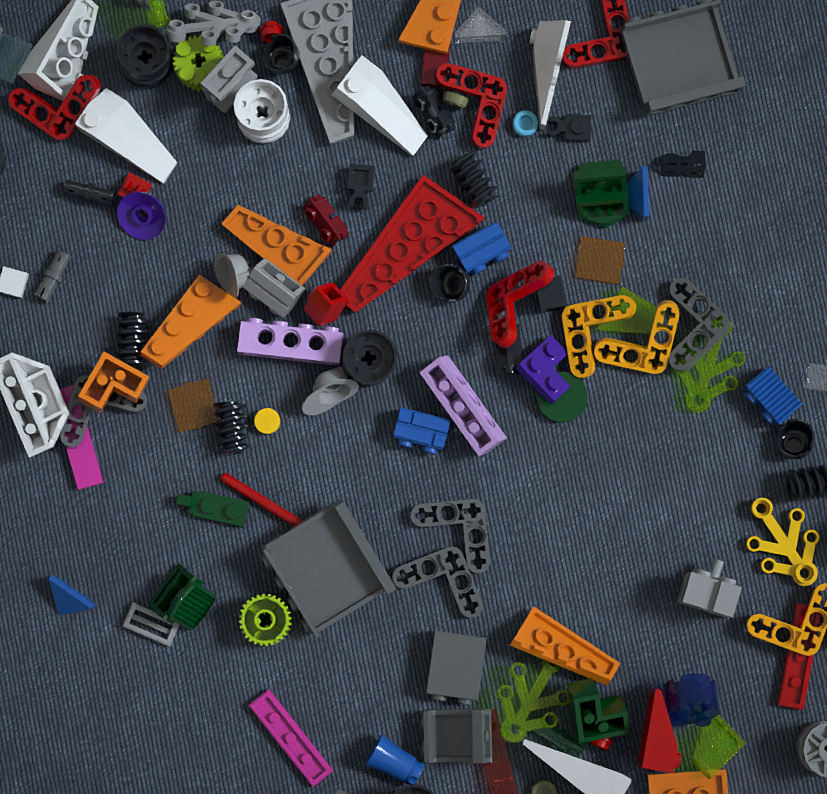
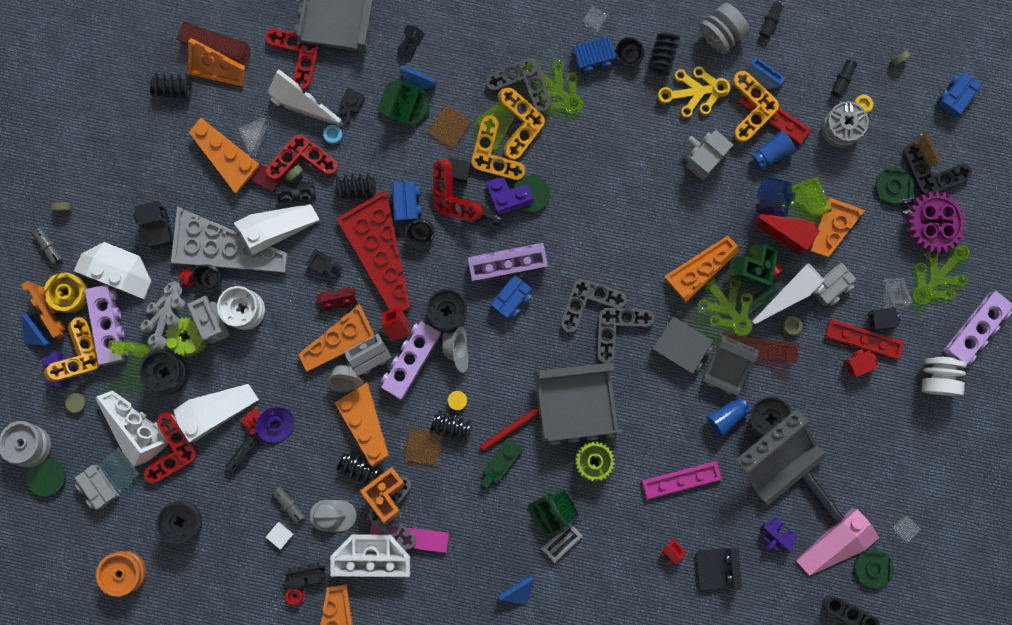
camera: 65 degrees left, 0 degrees up
(64, 334) = (333, 515): none -> light grey piece
(199, 765) = (674, 551): none -> red tile
(753, 674) = (774, 150): none -> blue plant

